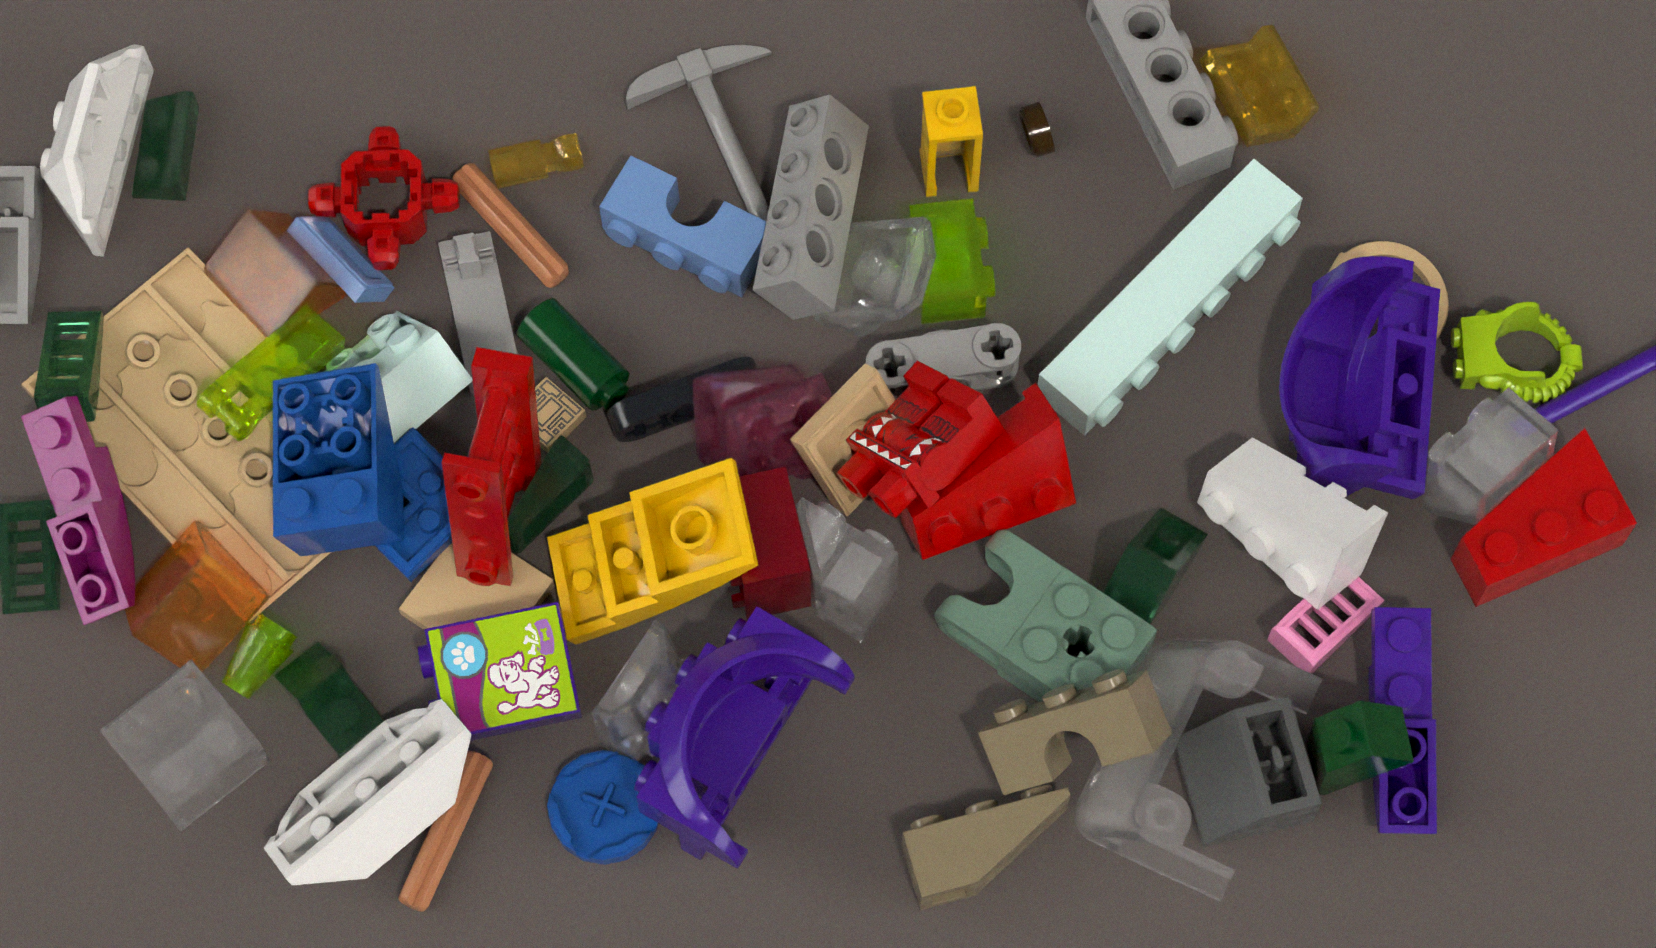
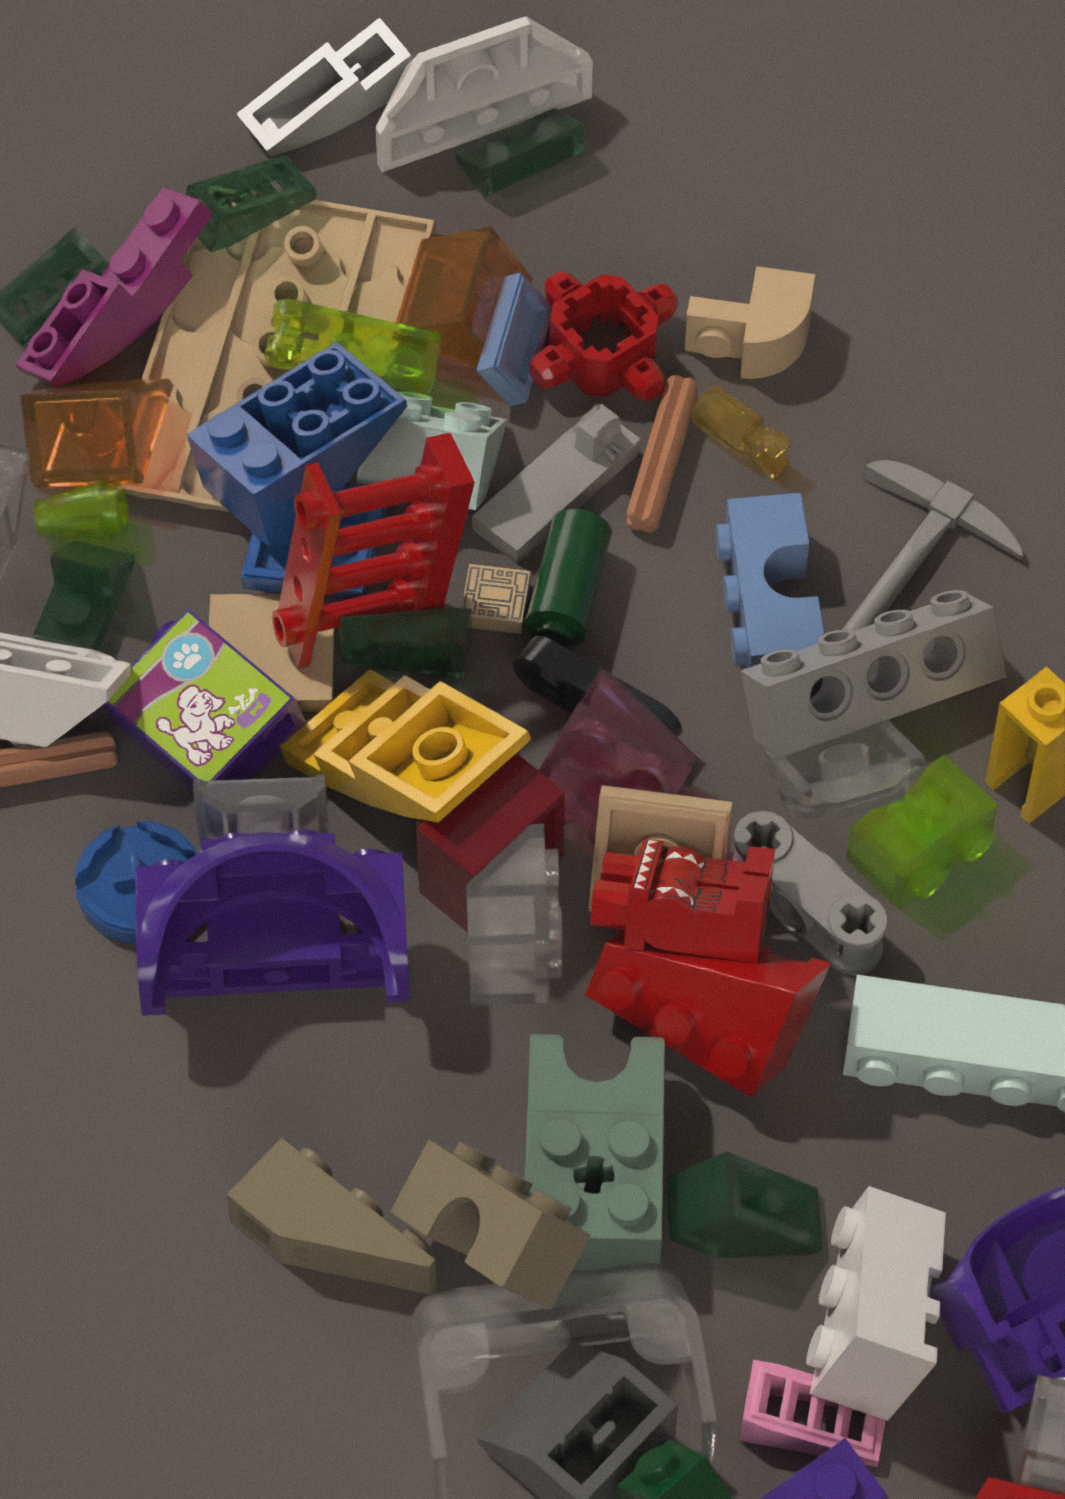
camera: 55 degrees right, 10 degrees down
(462, 87) = (763, 334): none -> tan brick

